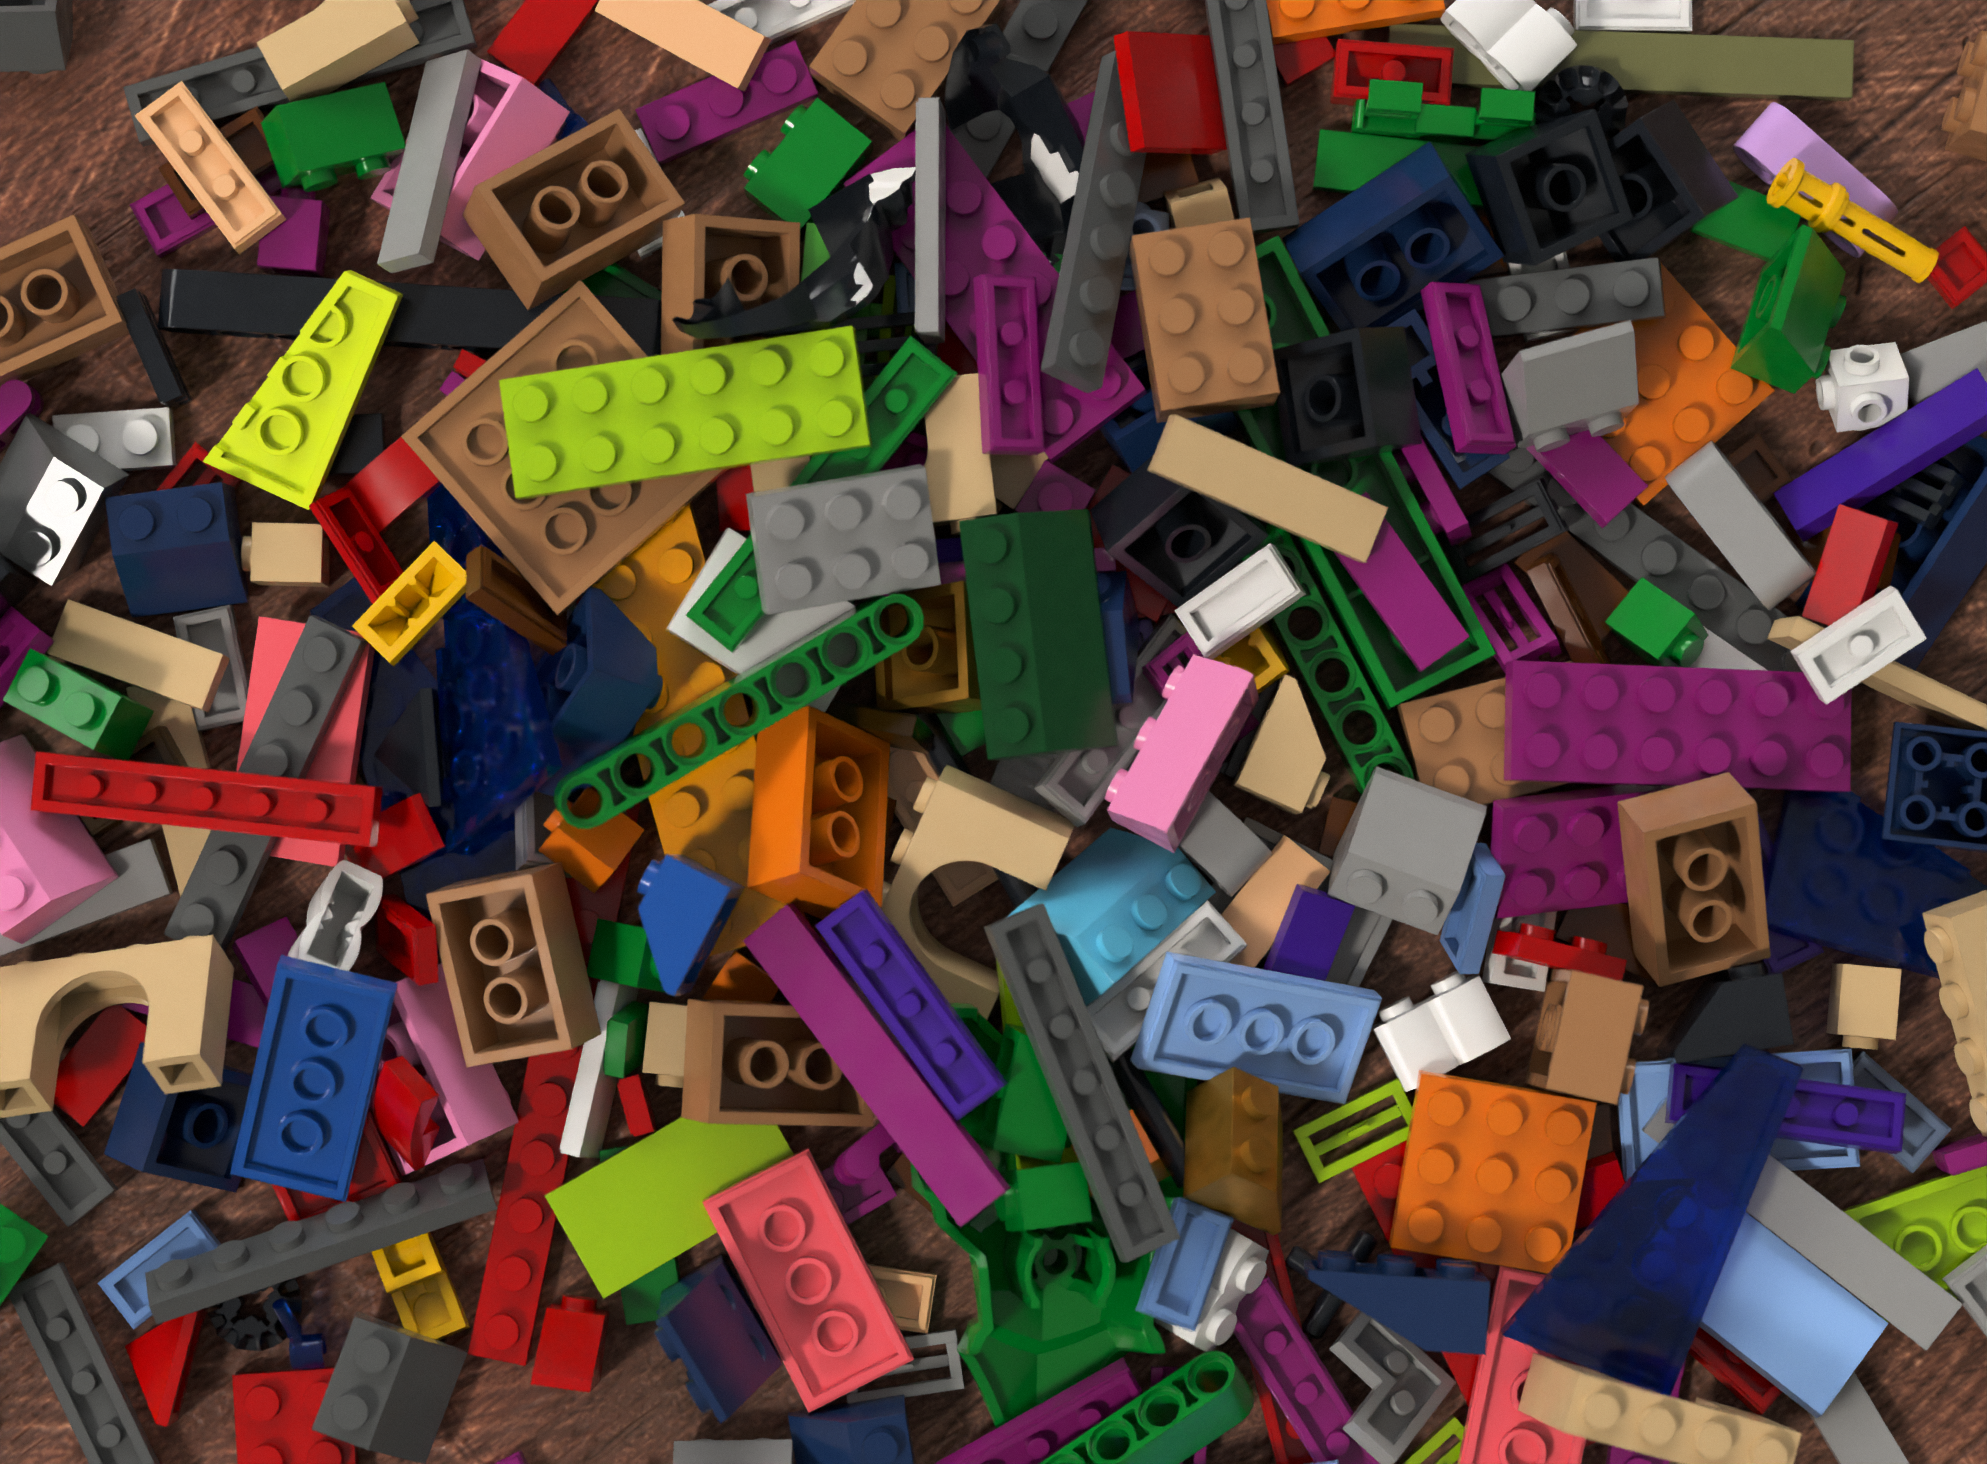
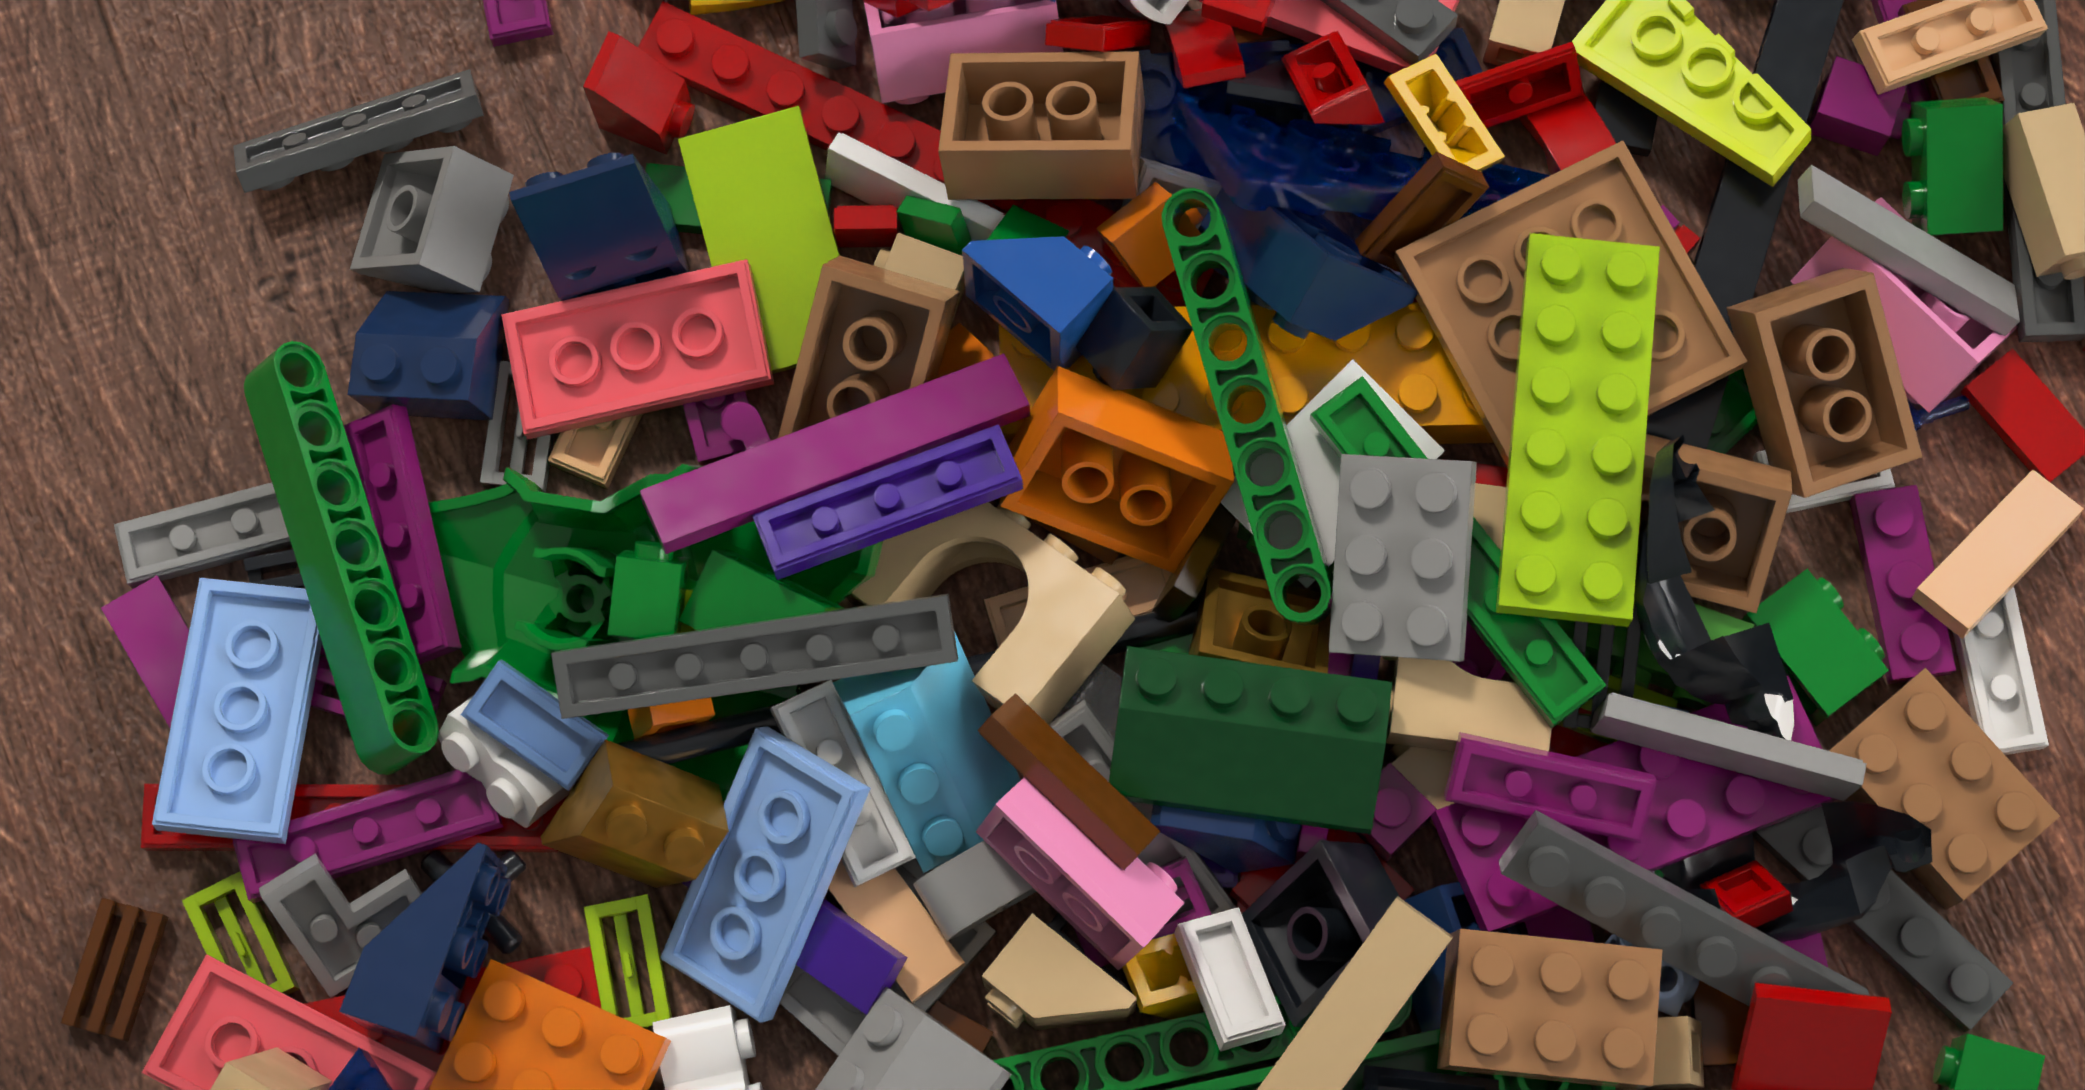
camera: 110 degrees right, 10 degrees down
(409, 712) = (1332, 83): none -> red slope
(702, 826) = (1134, 338): none -> black brick
(1047, 176) = (1751, 894): none -> red tile
(1119, 779) = (1068, 781): none -> reddish brown tile

